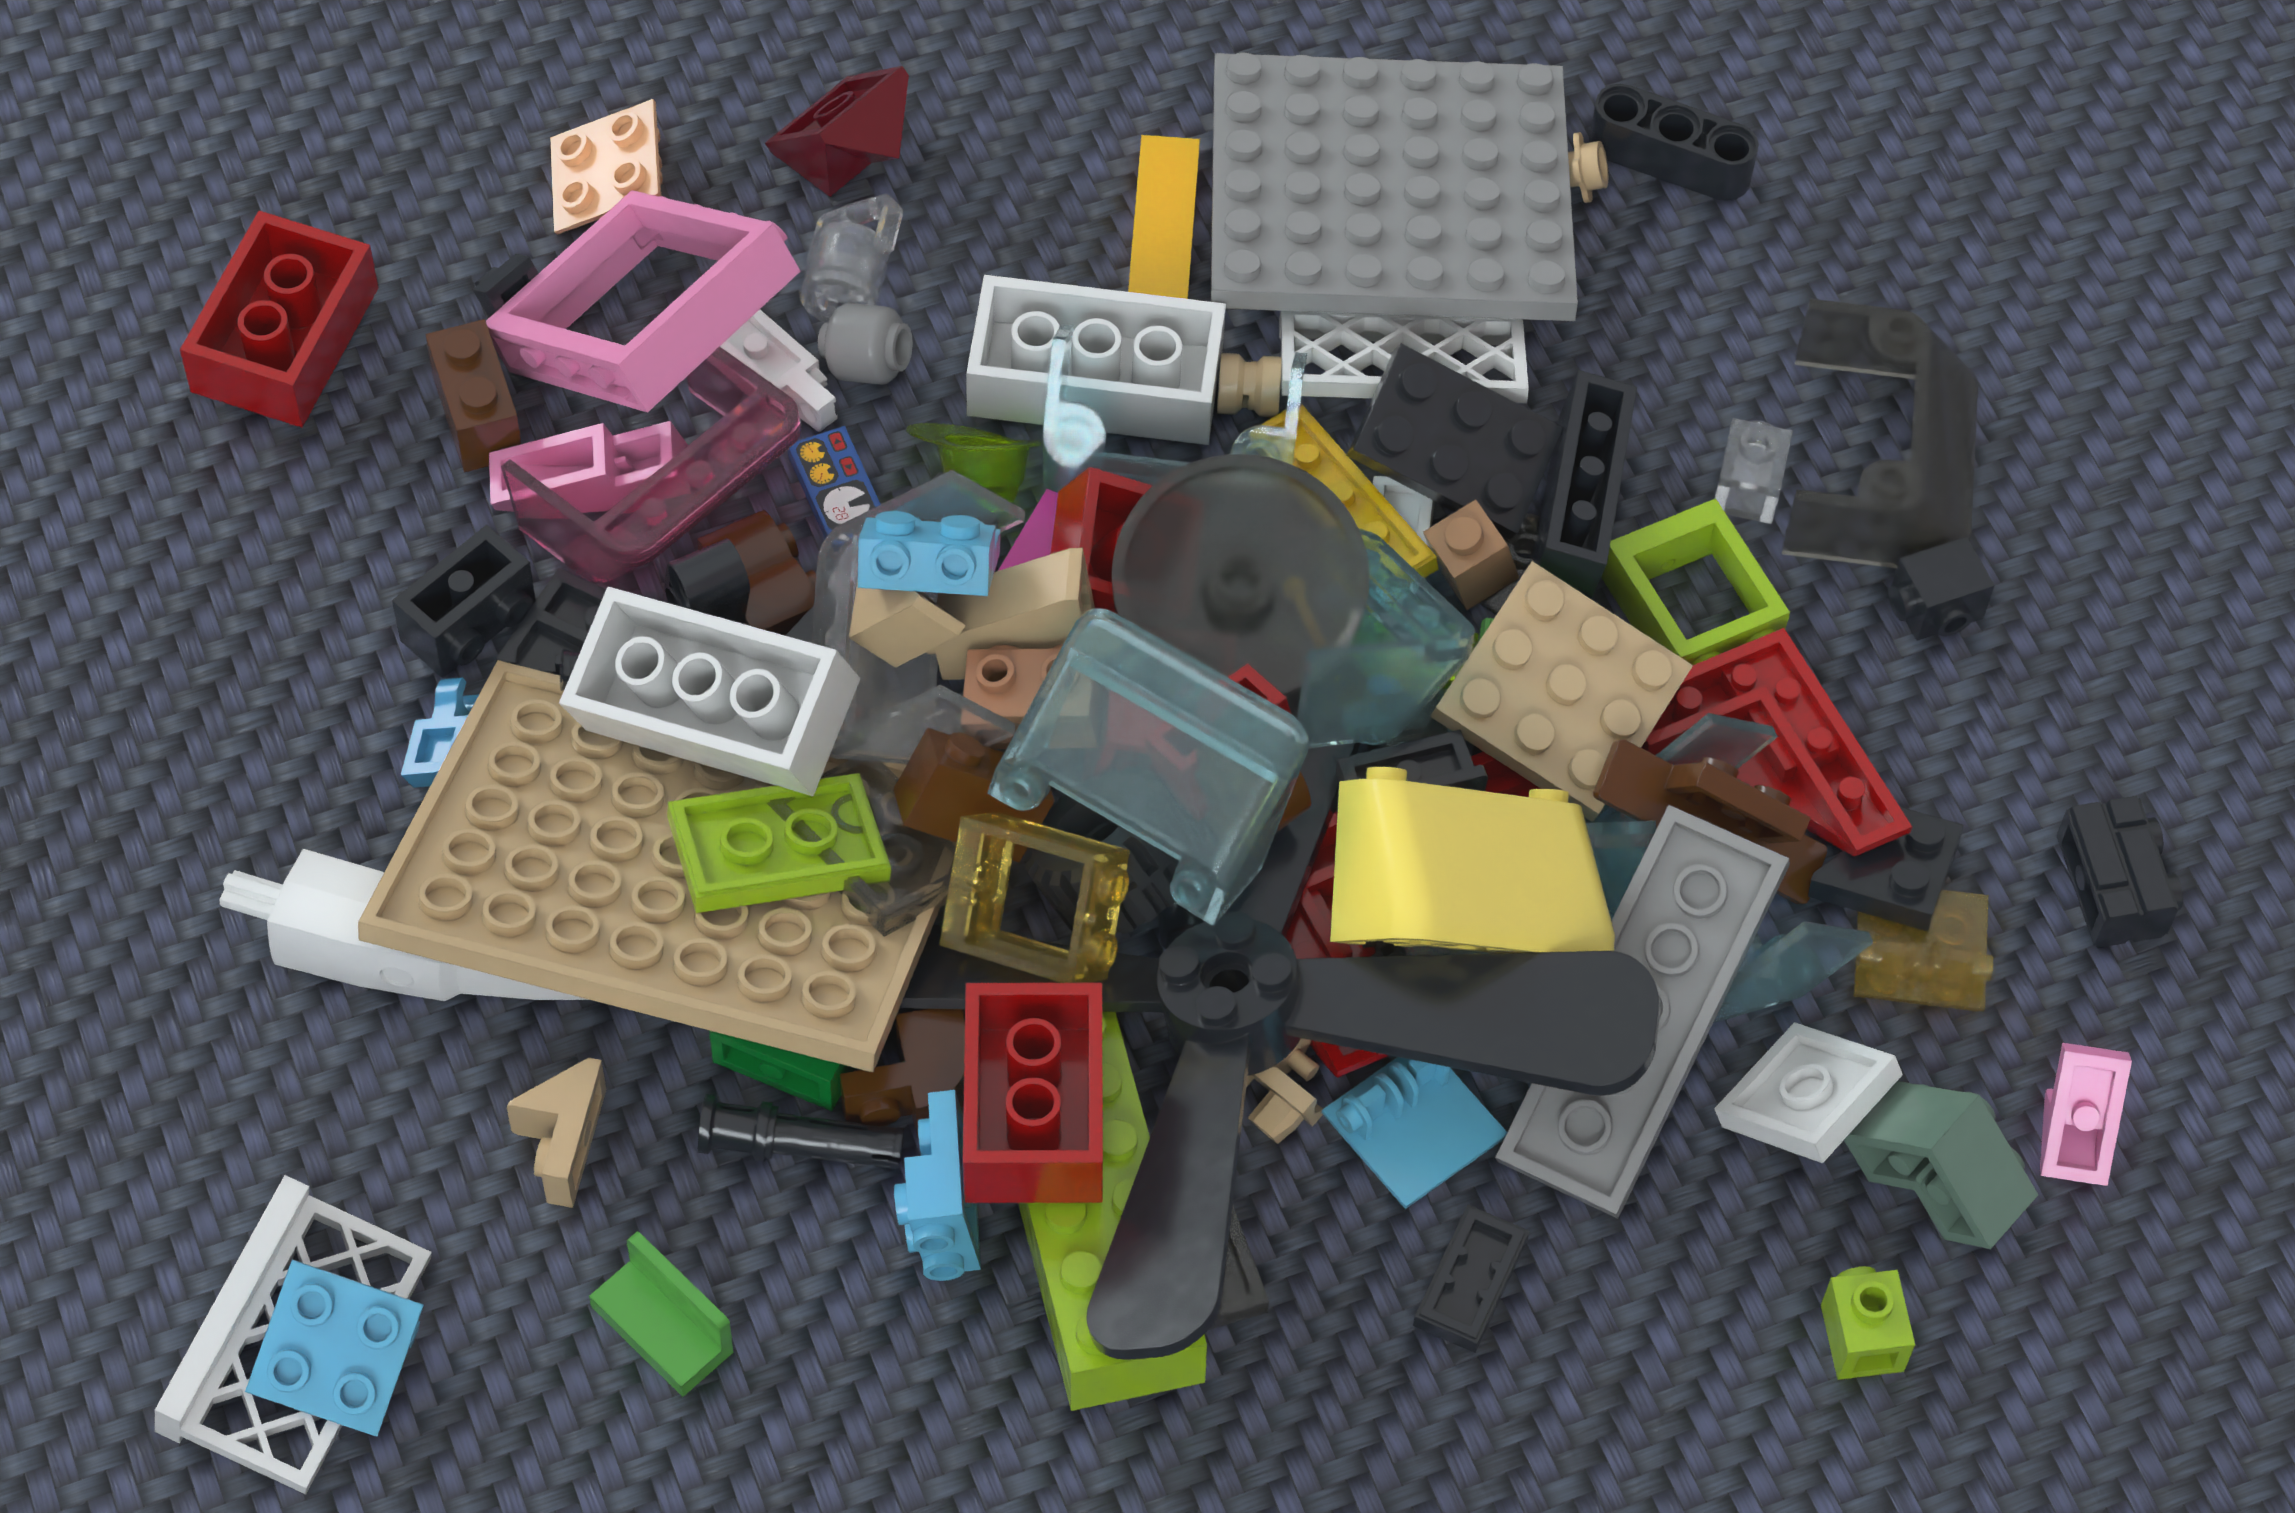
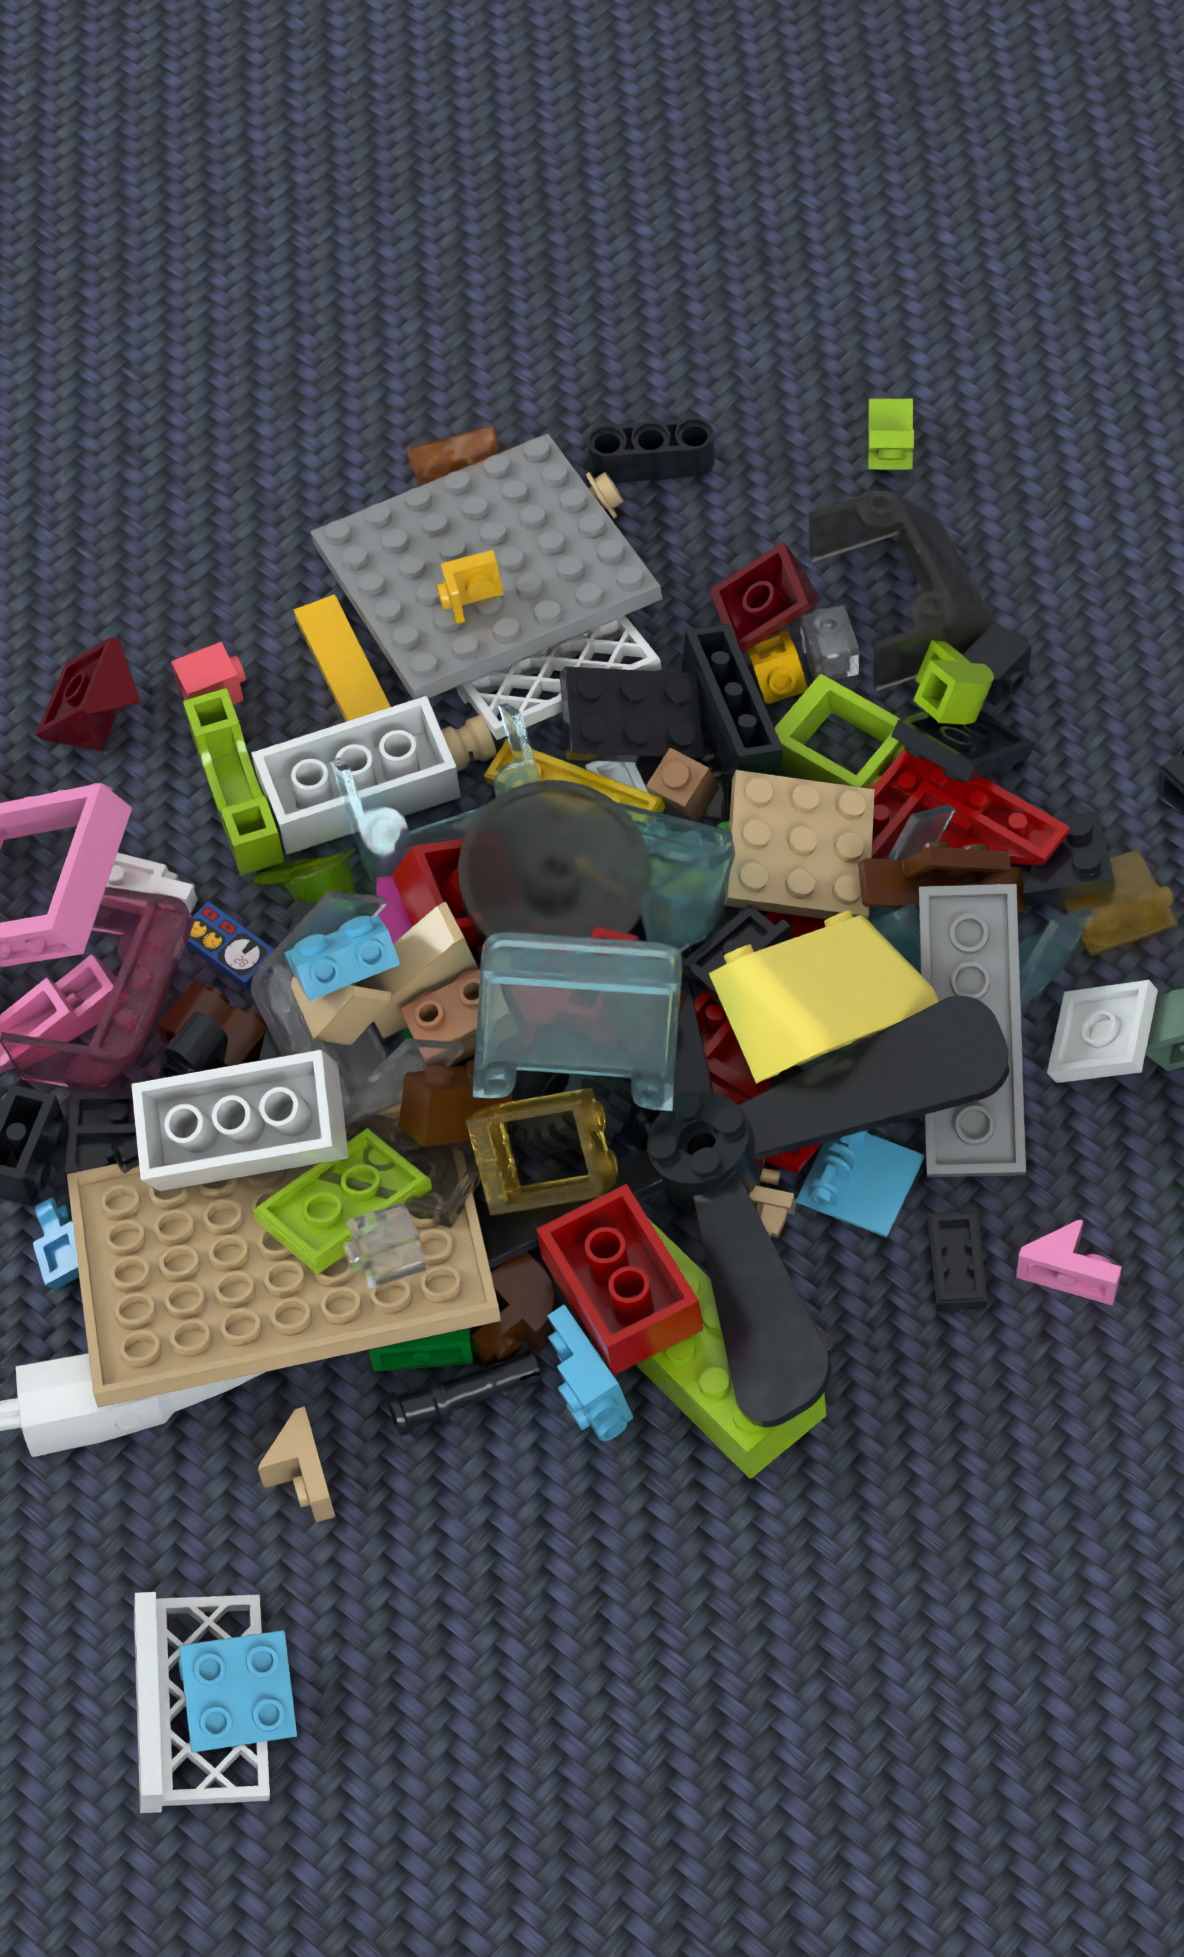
camera: 20 degrees left, 0 degrees up
(664, 1317) = (444, 1555): bright green panel -> none
(785, 916) = (384, 1245): none -> clear brick
(850, 259) = (147, 785): clear piece -> none
(865, 343) = (190, 838): light grey head -> none
(940, 342) = (233, 782): none -> lime arch
(995, 171) = (208, 672): none -> coral brick
(1349, 192) = (469, 581): none -> yellow bracket
(1433, 38) = (452, 454): none -> clear orange hinge
(1590, 1342) = (1055, 1264): none -> bright pink slope
(1672, 467) = (777, 667): none -> yellow bracket
(1702, 377) = (764, 596): none -> dark red slope
(1840, 659) = (963, 749): none -> black plate
(1864, 587) = (951, 685): none -> lime brick
(1975, 253) = (890, 434): none -> lime brick

